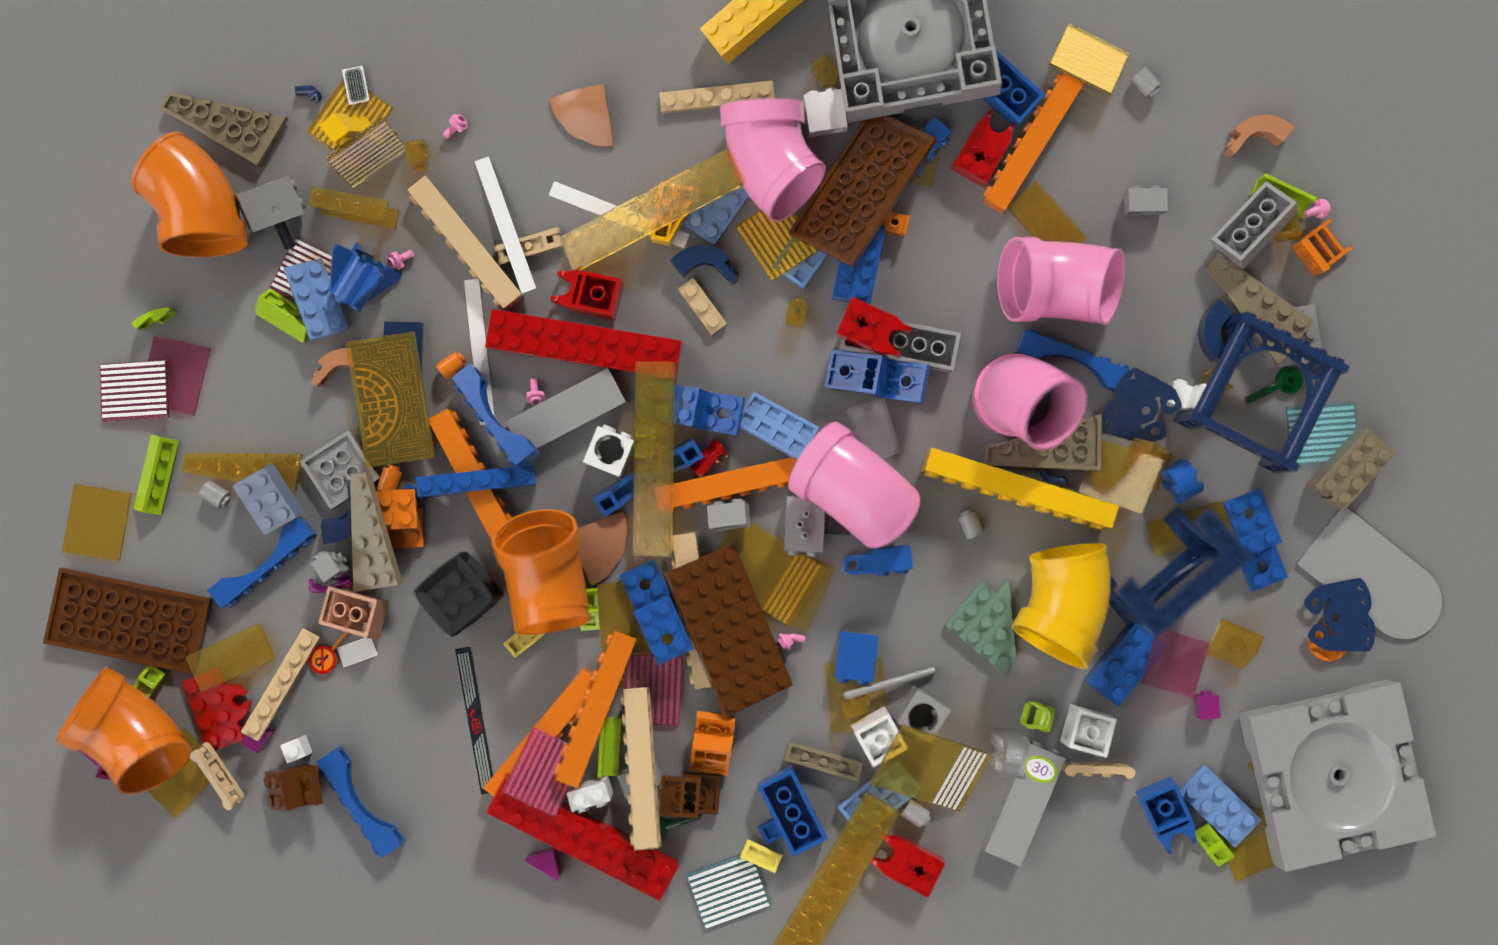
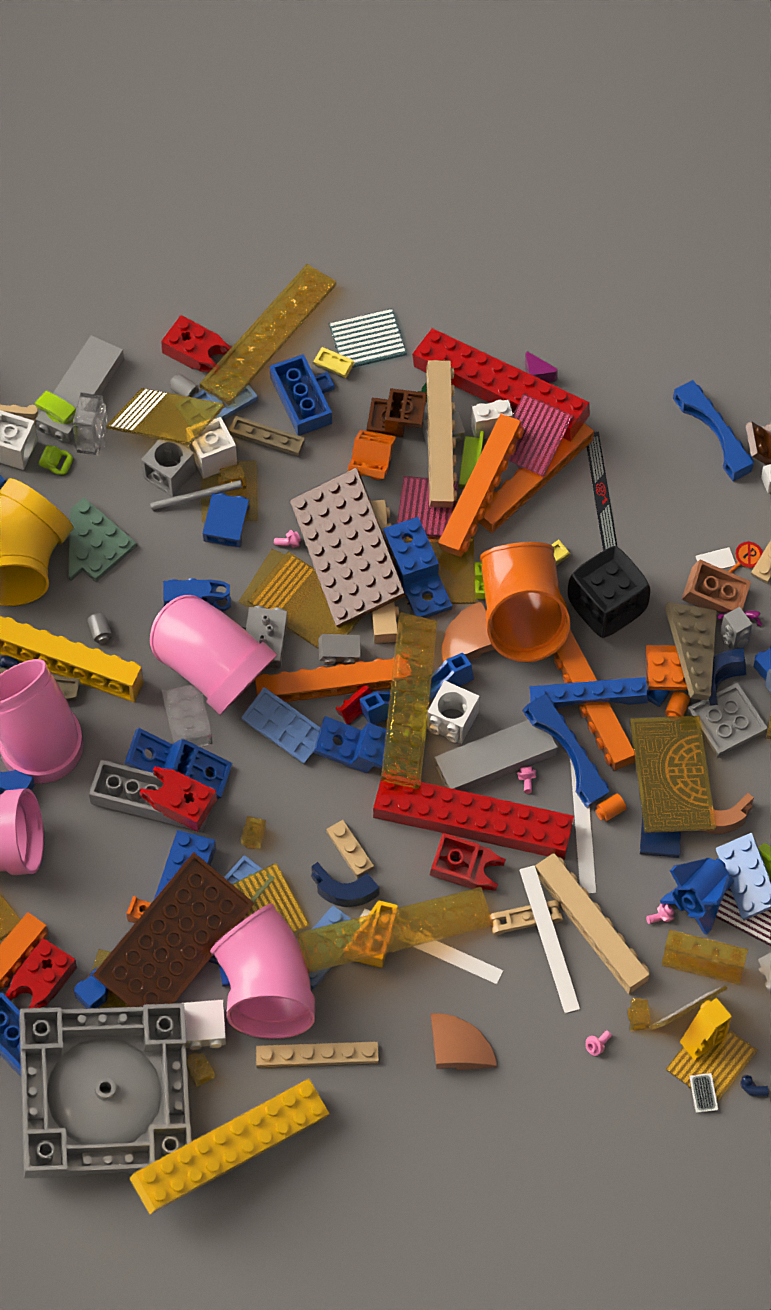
camera: 175 degrees left, 25 degrees down
(1047, 772) = (56, 406): none -> lime slope

